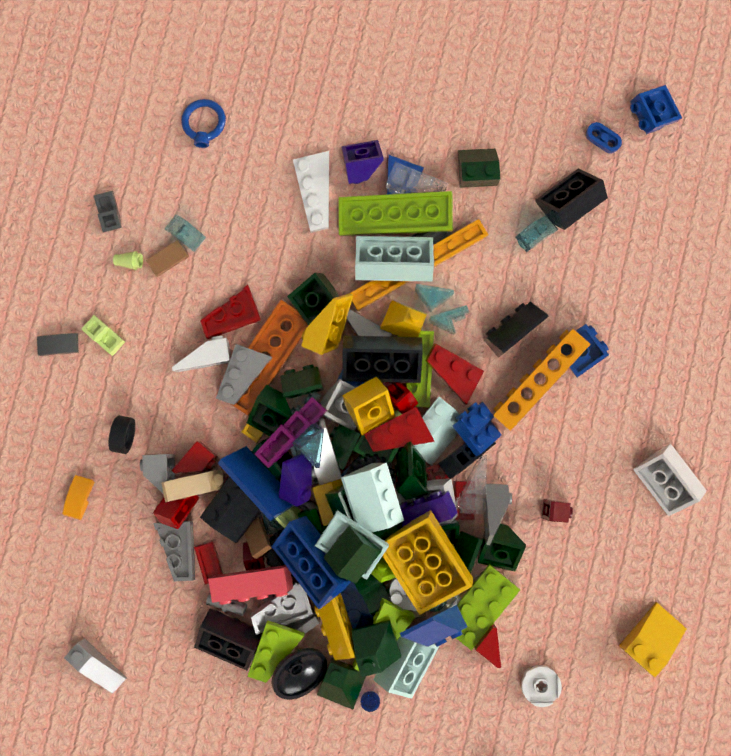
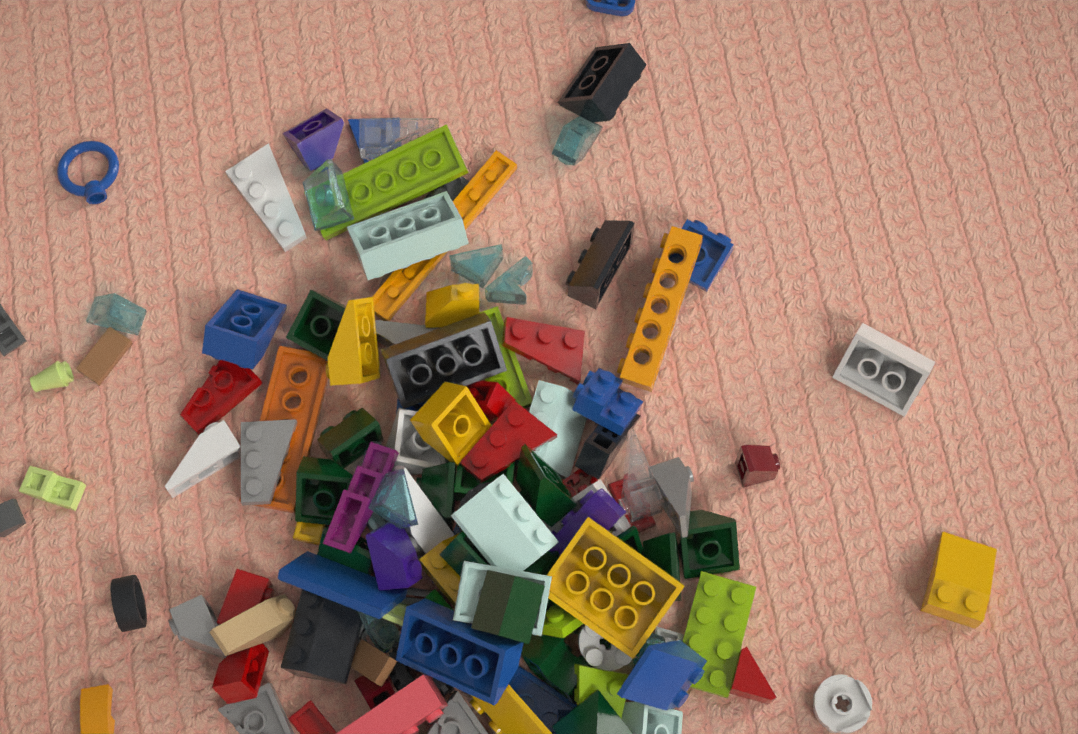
camera: 25 degrees left, 15 degrees down
(262, 278) = (242, 329): none -> blue slope
(352, 209) = (327, 196): none -> clear light blue slope
(478, 168) = (470, 93): dark green slope -> none

